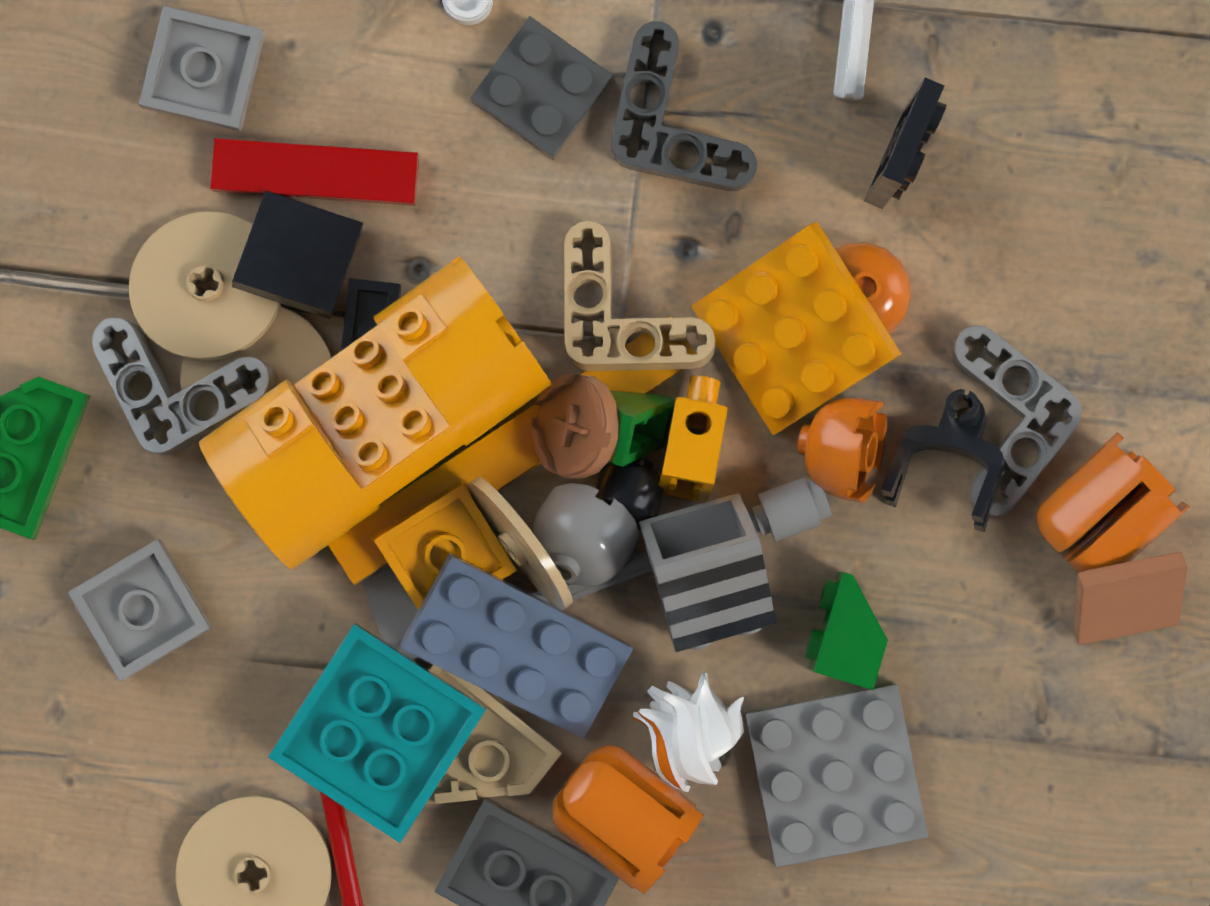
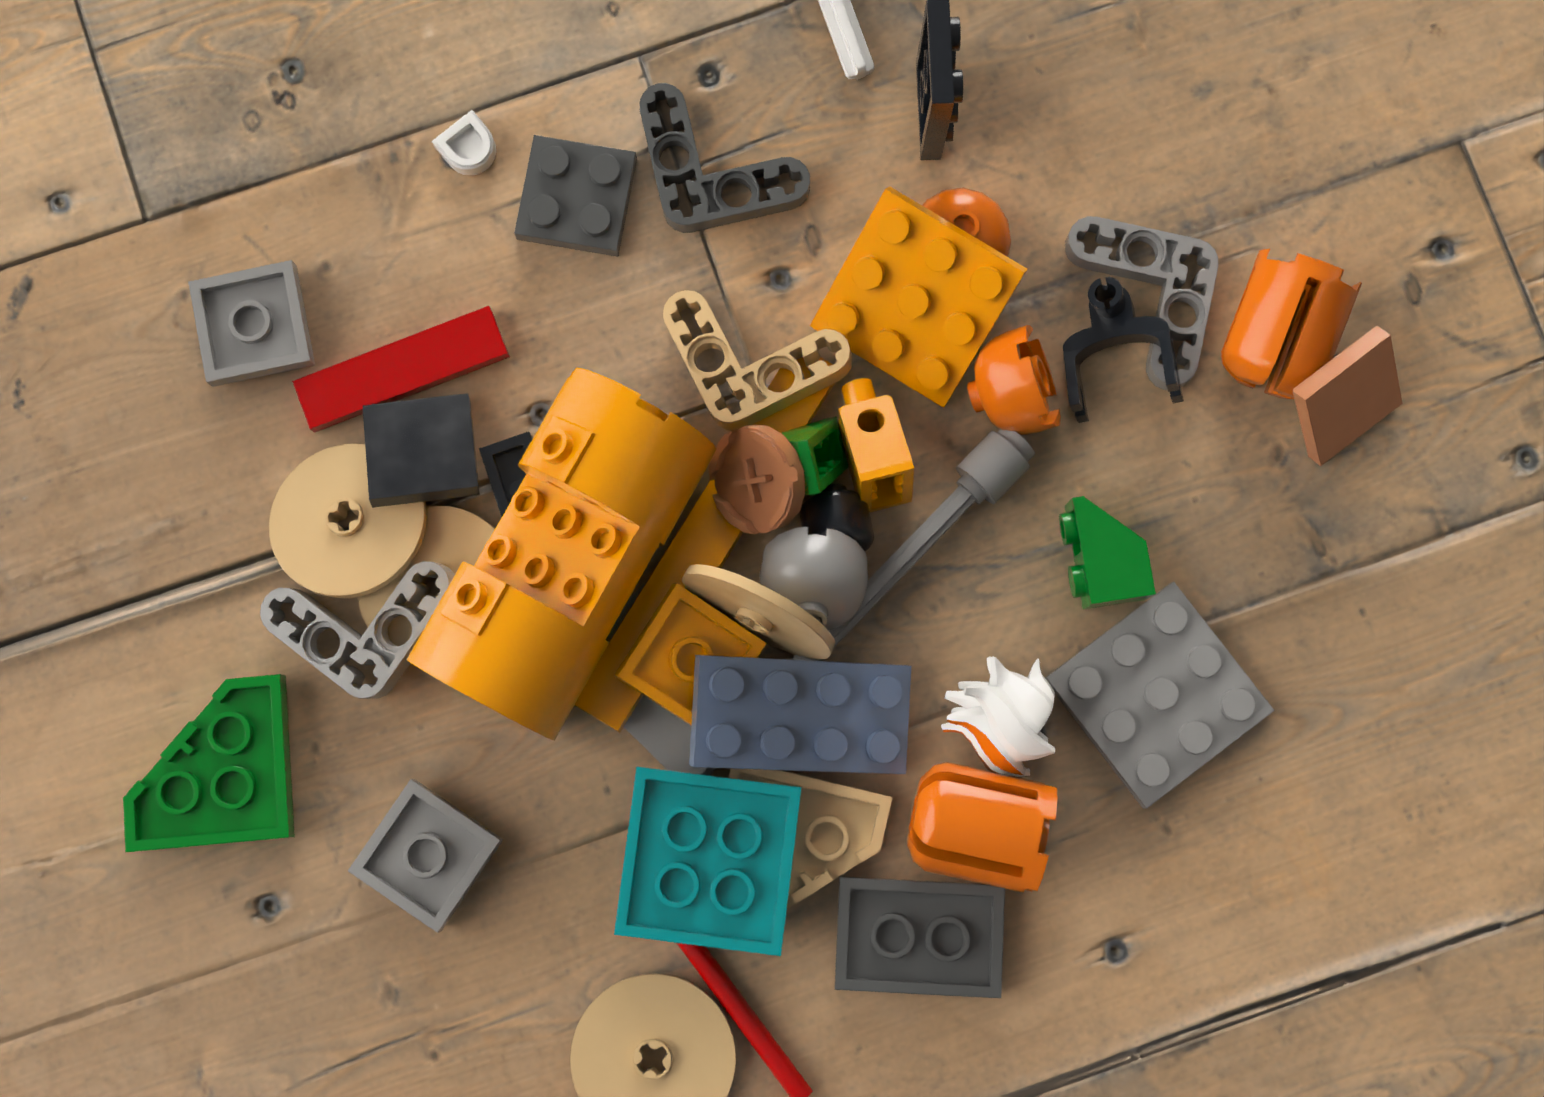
camera: 20 degrees left, 5 degrees down
(709, 572) = (949, 557): light grey slope -> none

